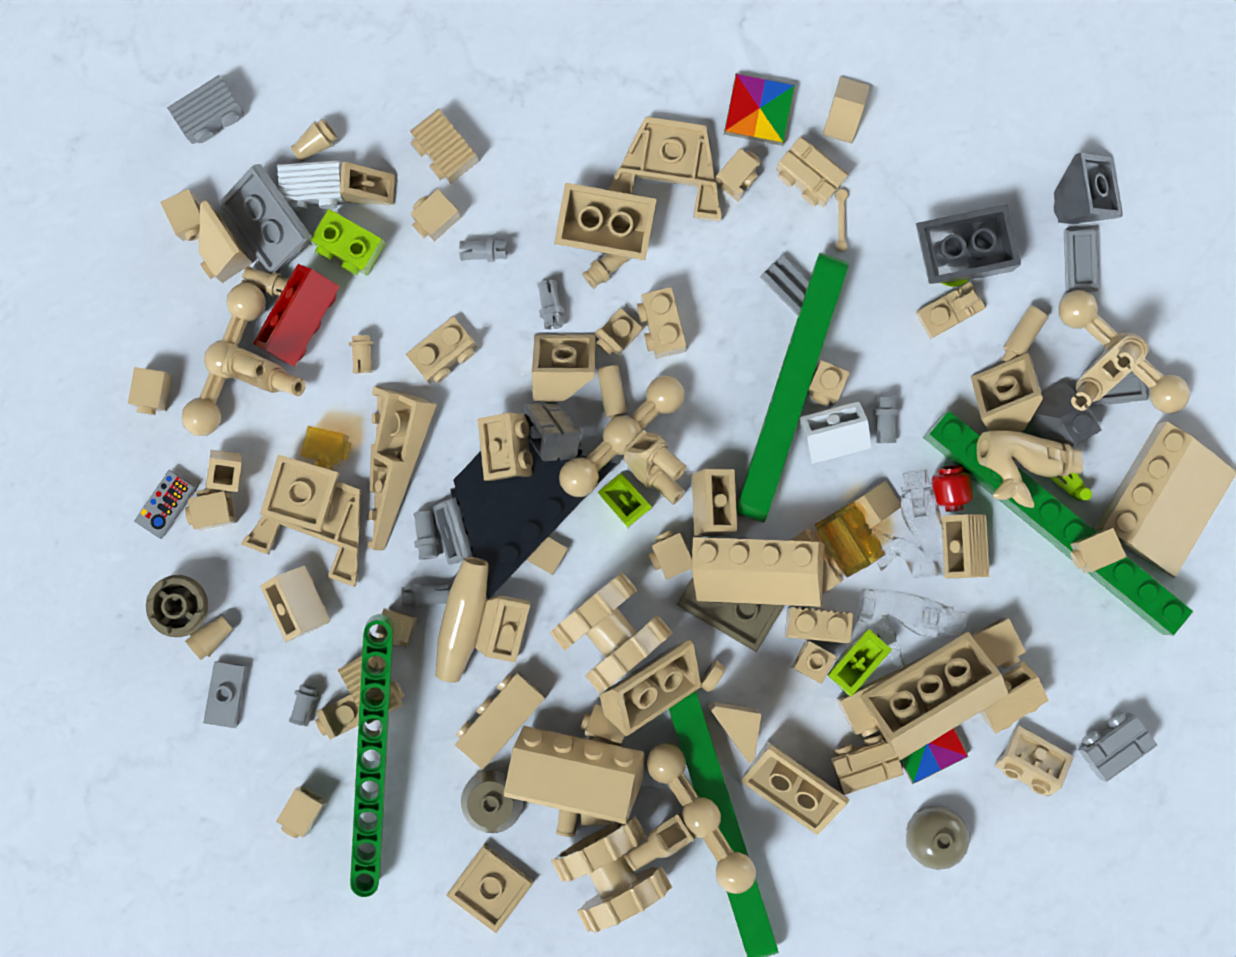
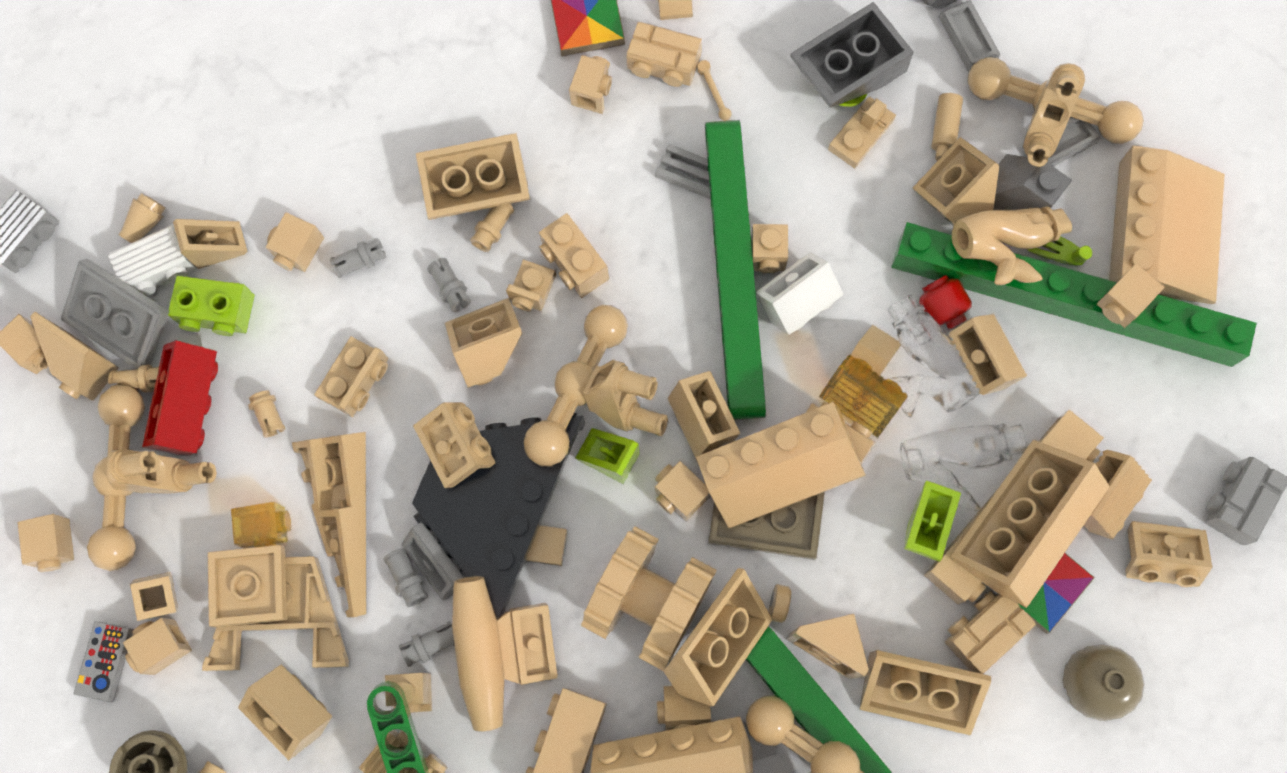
camera: 20 degrees left, 10 degrees down
(443, 146) = (278, 172): tan brick -> none
(552, 431) = (499, 408): flat silver brick -> none
(612, 391) = (547, 345): tan cylinder -> none
(672, 154) = (520, 91): tan wing -> none
(813, 661) = (882, 542): tan brick -> none
(818, 624) = (870, 500): tan brick -> none
(885, 417) = (843, 257): light grey pin -> none

